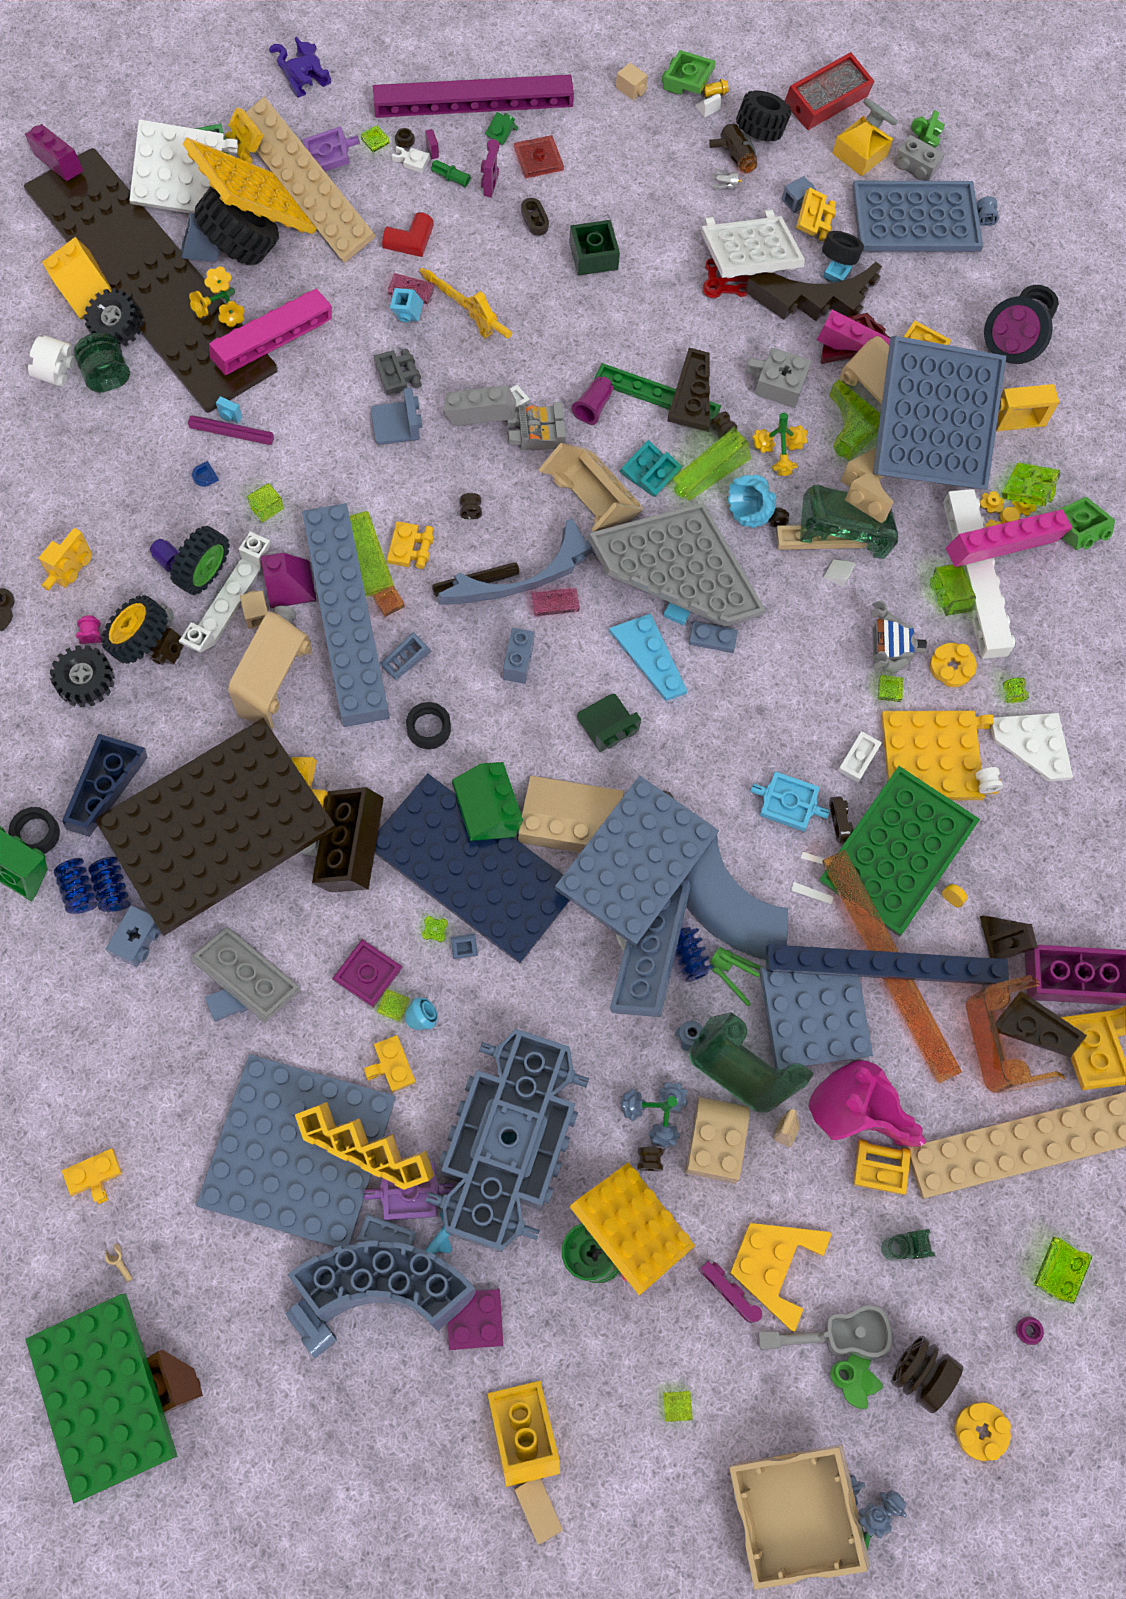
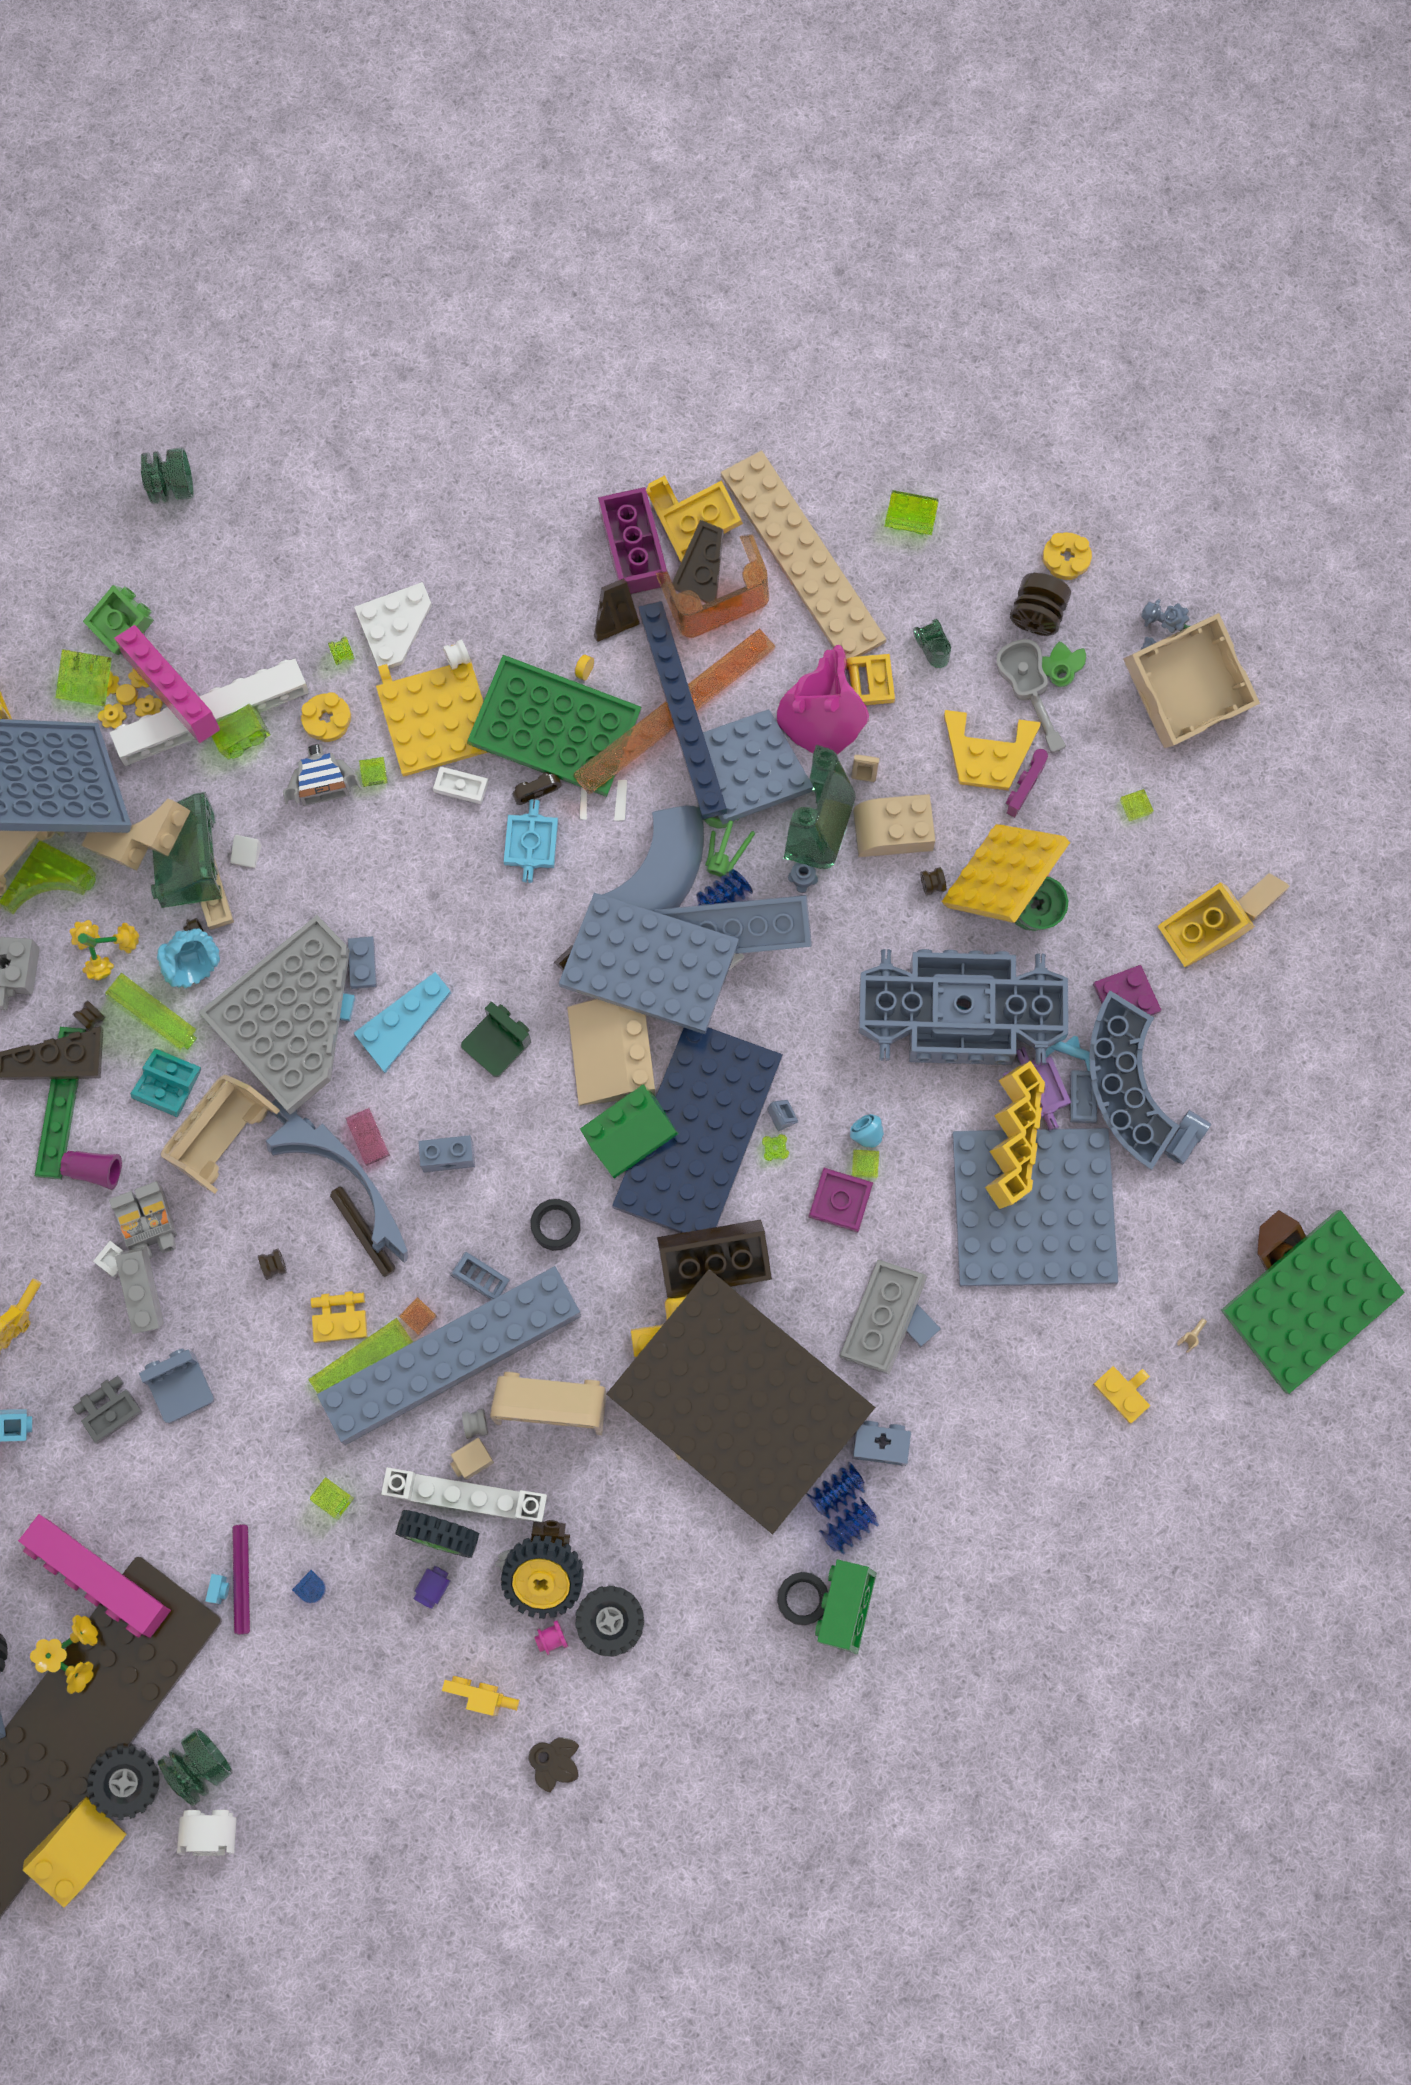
camera: 100 degrees left, 5 degrees up
(103, 780) = (729, 1544): dark blue wedge -> none
(287, 580) = (425, 1436): magenta slope -> none
(392, 1064) = (923, 1145): yellow plate -> none
(671, 1098) = (904, 875): sand blue plant -> none
(1037, 1328) = (970, 526): magenta plate -> none

